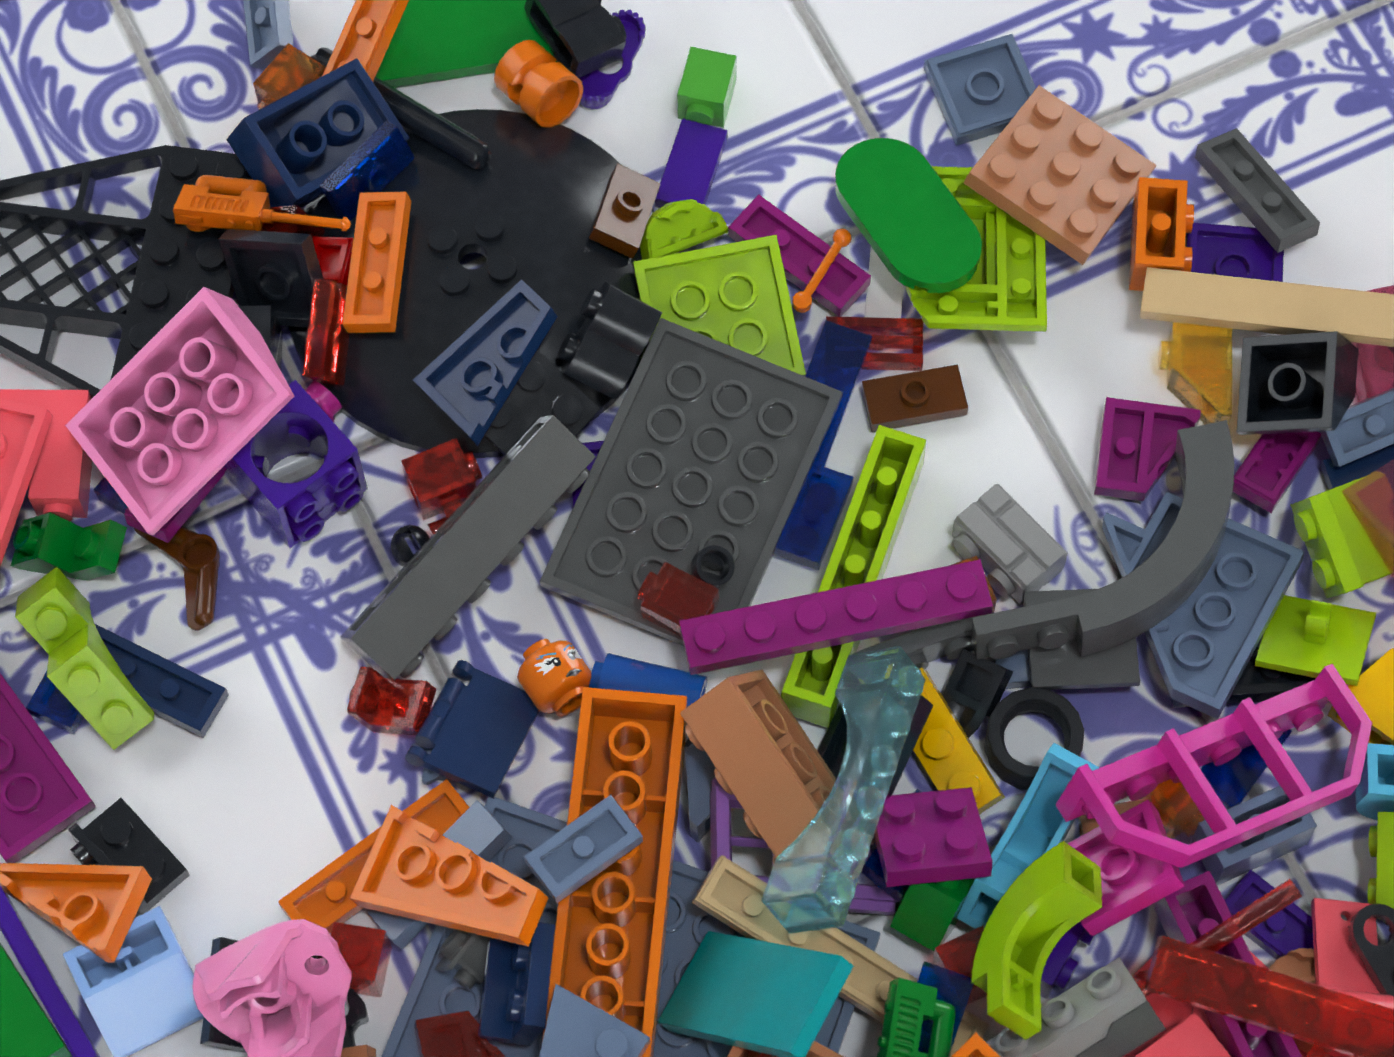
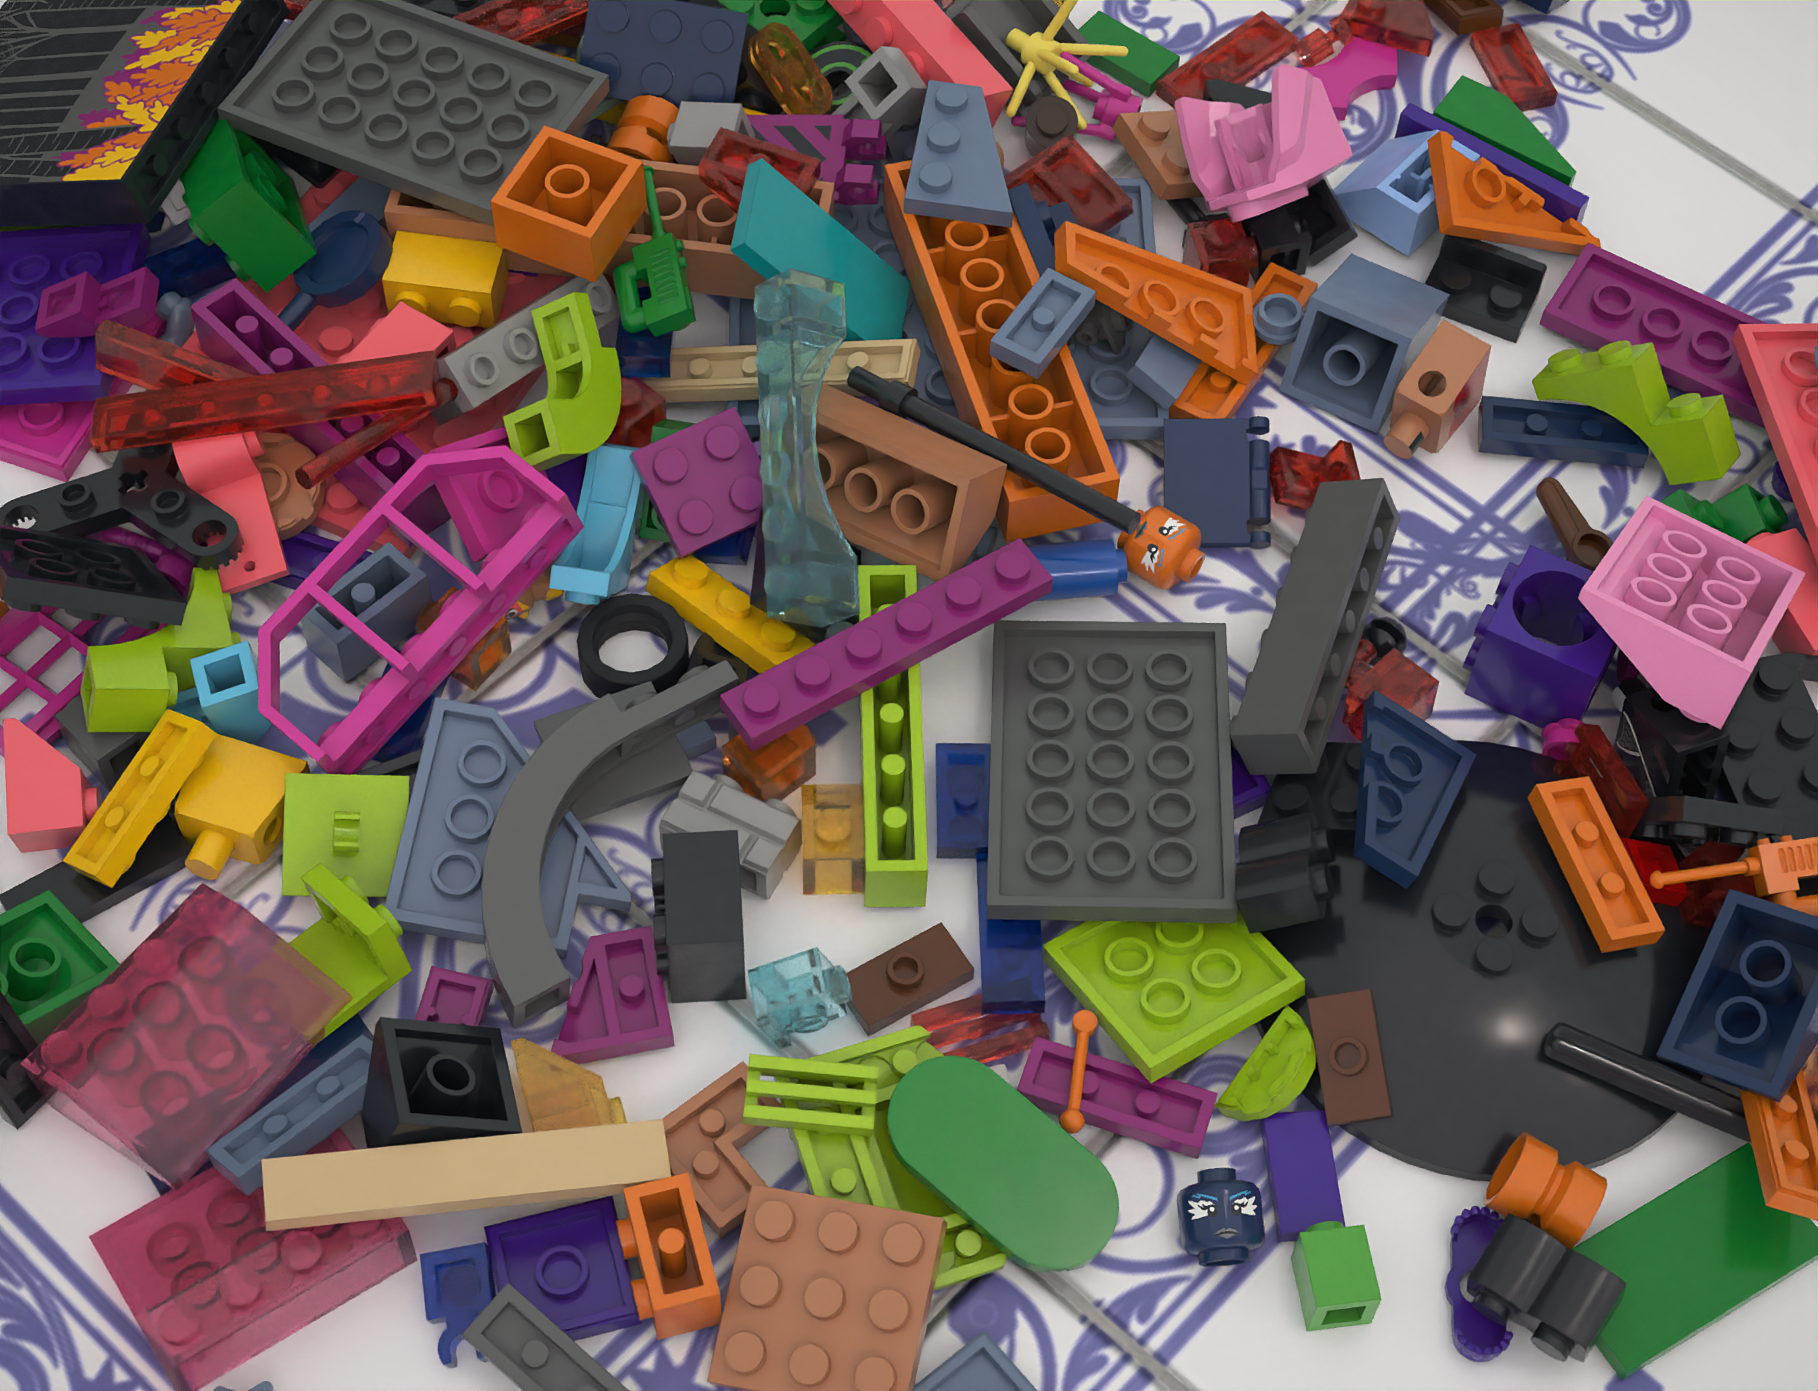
camera: 155 degrees right, 10 degrees down
(244, 735) = (1437, 391): none -> nougat torso
(266, 826) = (1361, 340): none -> sand blue slope
(341, 858) = (1278, 319): none -> sand blue plate
(367, 169) = (1675, 974): clear blue plate -> none
(675, 597) = (1067, 629): clear red brick -> none
(714, 557) = (1047, 670): black hinge -> none
(736, 830) = (904, 402): none -> black bar
(766, 144) = (1220, 1218): none -> dark blue head
(928, 519) = (832, 839): none -> clear yellow slope
(1003, 392) = (798, 995): none -> clear light blue brick
(1030, 287) = (817, 1071): none -> lime tile
(1062, 460) = (699, 916): none -> black brick
(1109, 315) = (705, 1143): none -> nougat plate
(1310, 265) = (456, 1290): none -> clear blue plate

